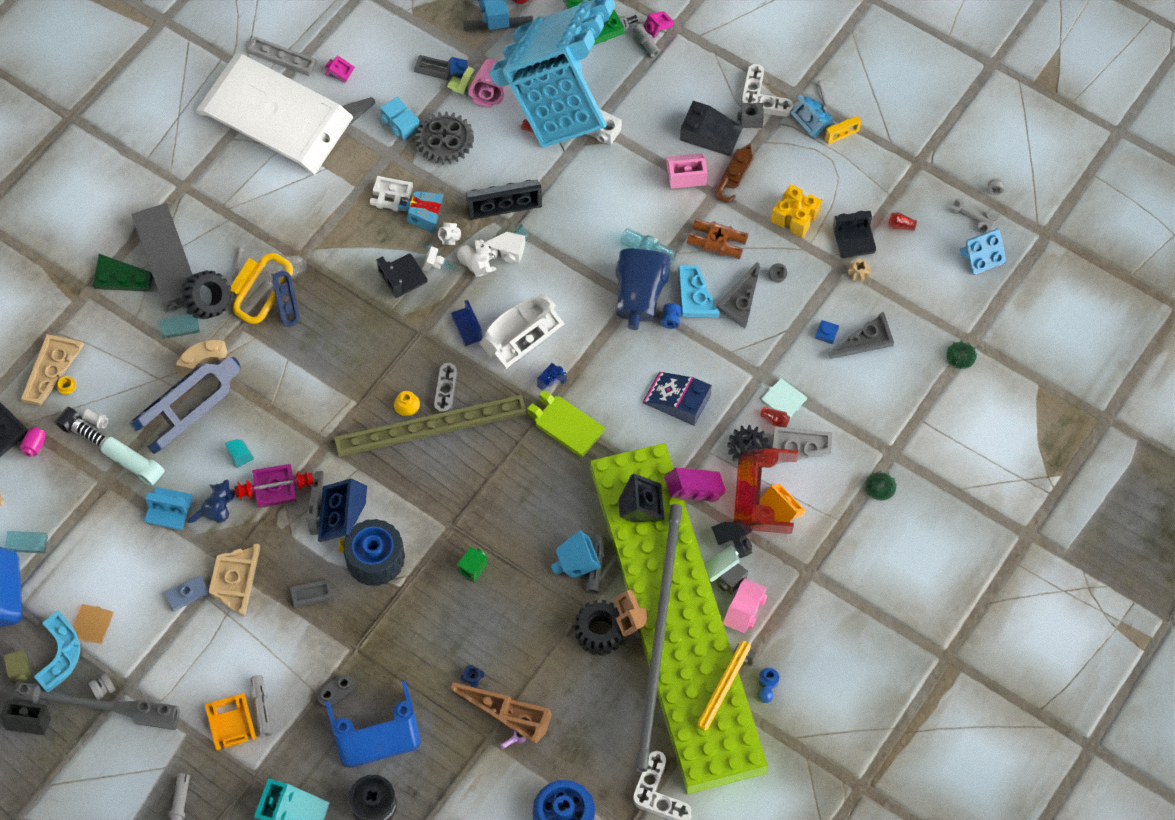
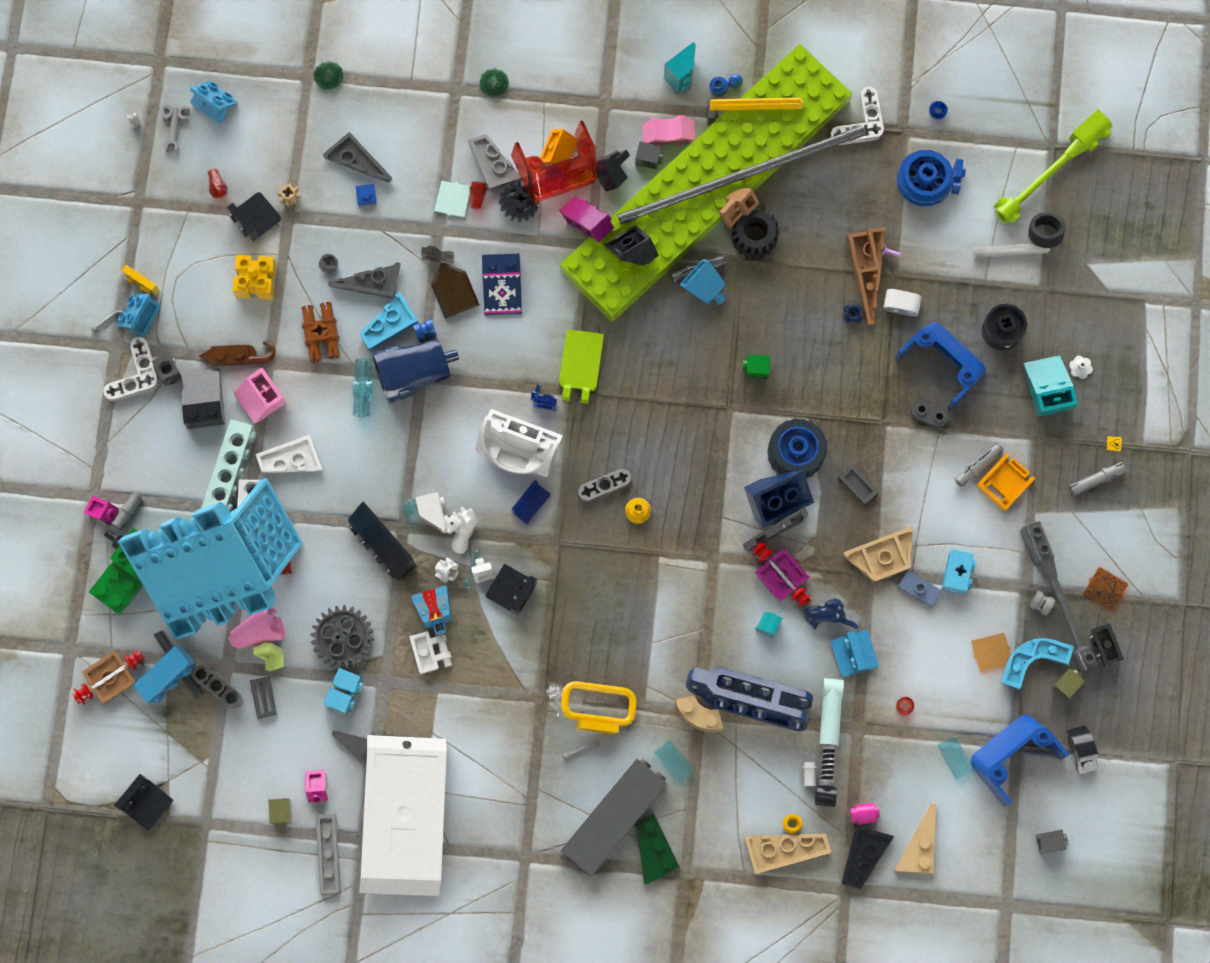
camera: 120 degrees left, 15 degrees up
(77, 755) = (1105, 588): none -> clear orange piece
(97, 519) = (909, 709): none -> clear red bush
(174, 621) = (951, 580): none -> medium azure brick
(218, 289) = (638, 747): black tyre -> none
(291, 305) = (605, 667): dark blue plate -> none
(335, 36) = (280, 812): none -> olive brick
(430, 425) = (649, 476): olive plate -> none
(455, 724) = (902, 302): none -> white beam
(457, 66) = (253, 670): blue plate -> none
(462, 38) = (210, 680): none -> dark grey beam
(609, 96) = (235, 431): none -> light aqua brick
(620, 169) = (290, 457): none -> white wing
(696, 358) = (453, 290): none -> dark brown tile
(721, 563) = (643, 165): light aqua piece -> none
(739, 354) = (432, 253): none -> clear smoke plate
(800, 646) = (679, 69): none -> teal slope

